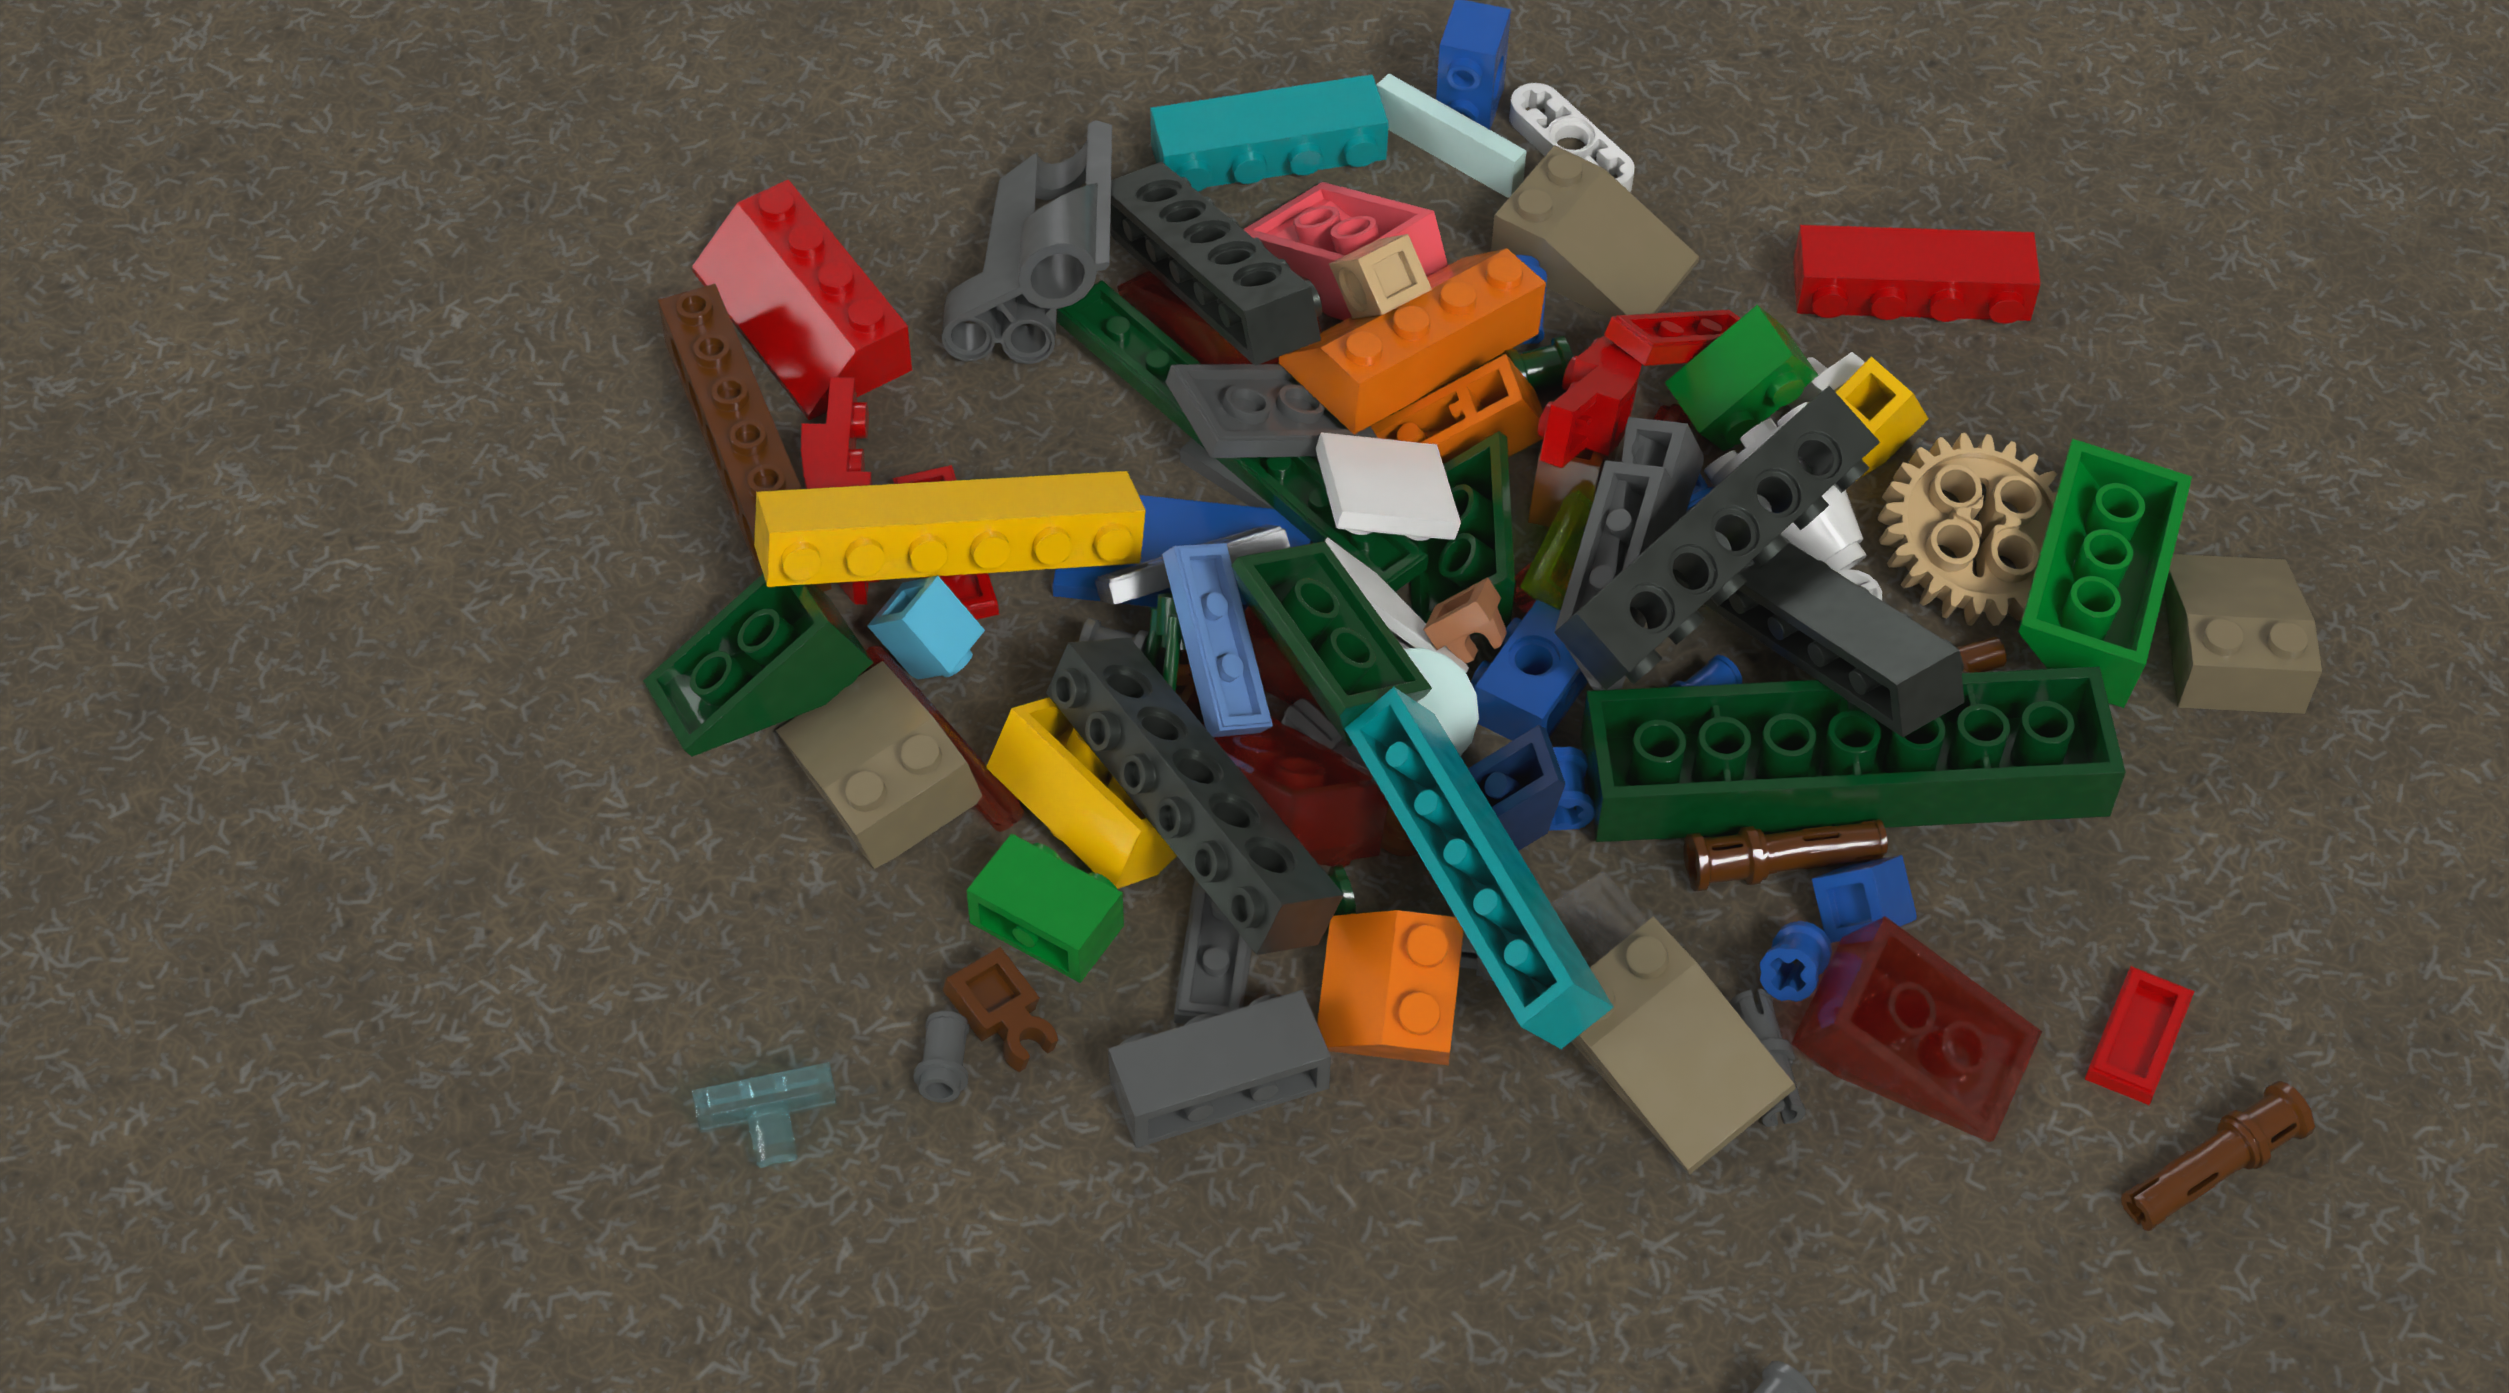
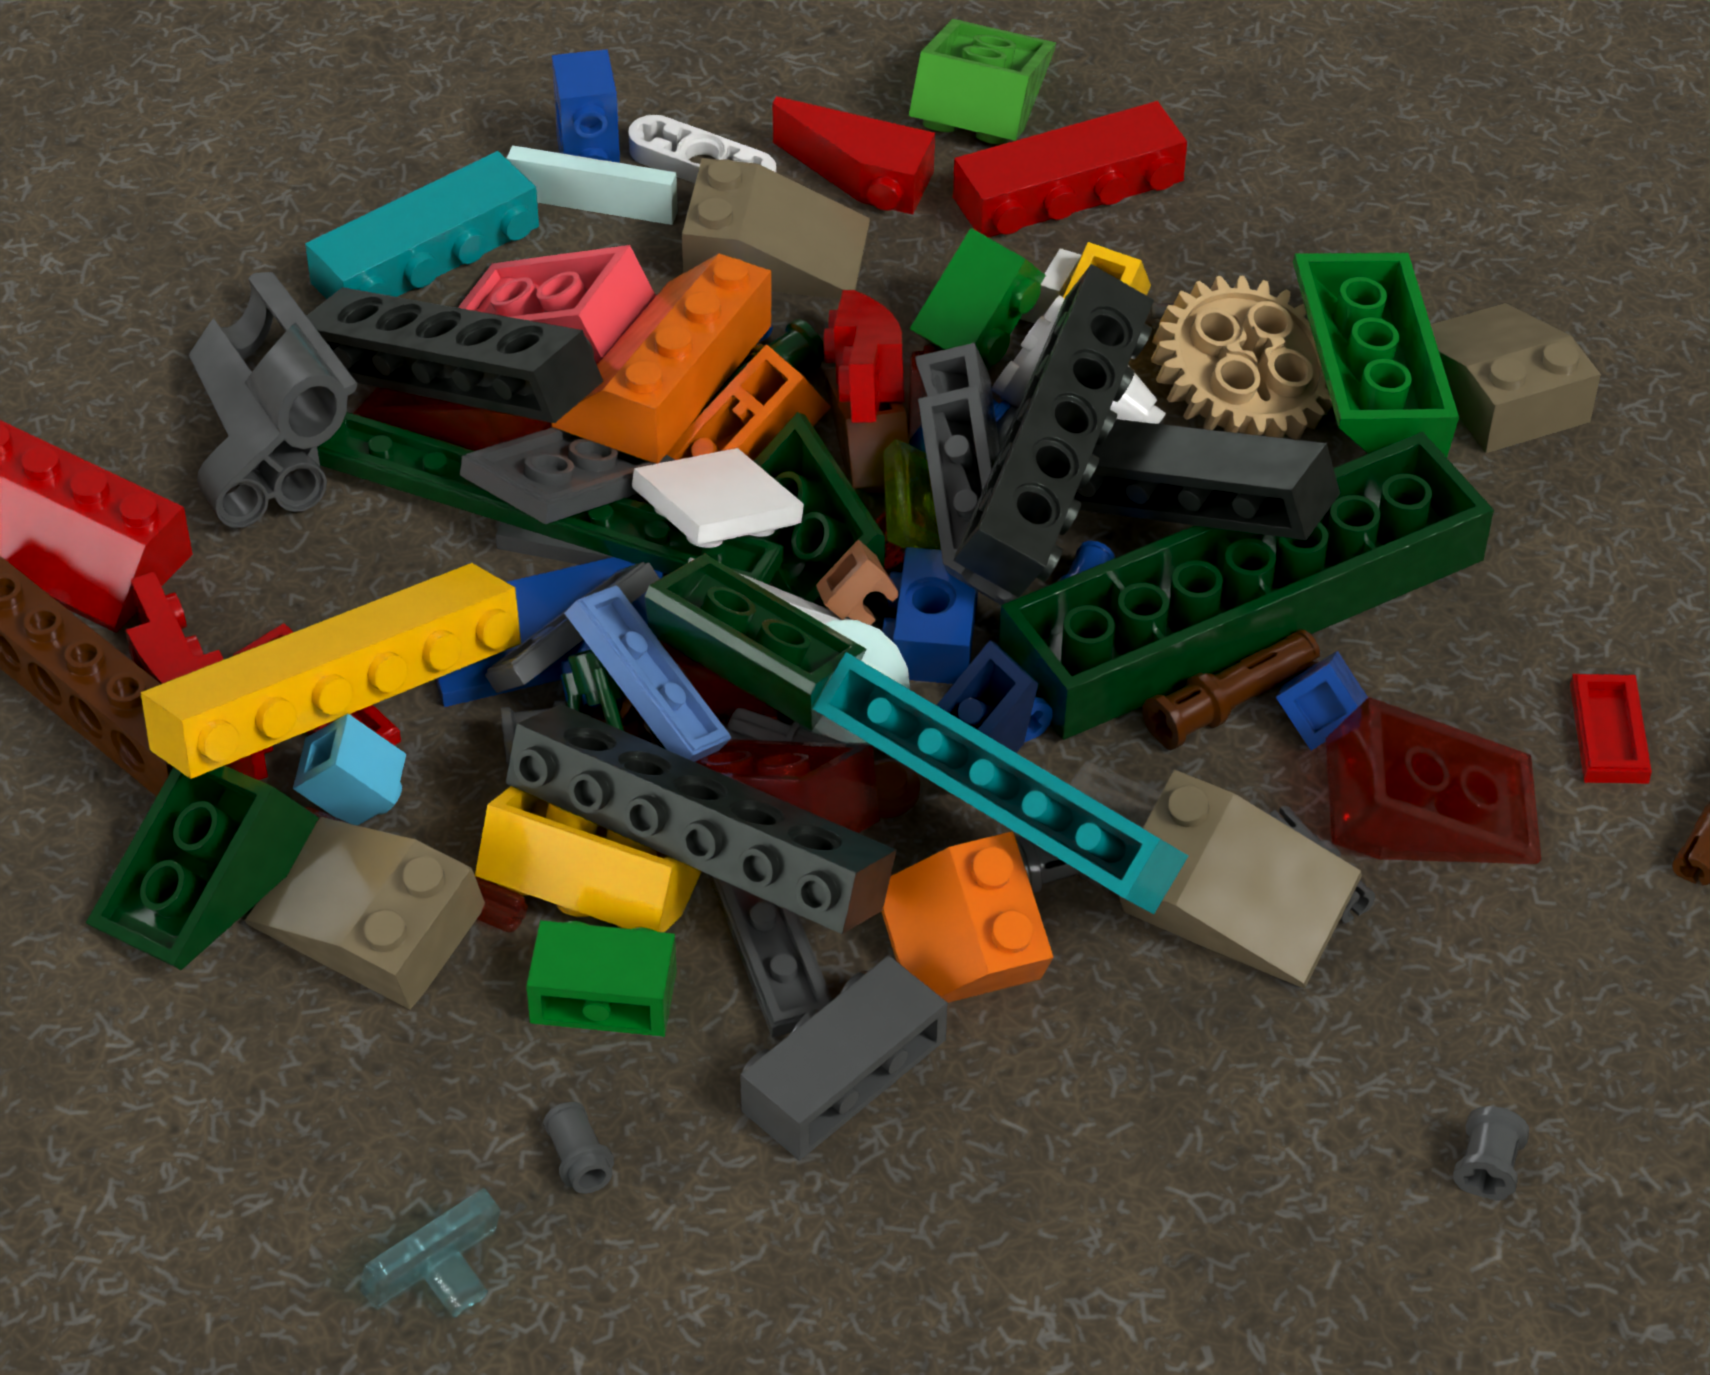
camera: 25 degrees left, 5 degrees down
(1000, 1001) = (607, 1079): reddish brown plate -> none
(1380, 276) = (621, 312): tan brick -> none
(1668, 336) = (897, 285): red tile -> none
(1723, 194) = (860, 155): none -> red slope
(1789, 980) = (1296, 753): blue bush -> none
(1879, 150) = (980, 80): none -> bright green slope

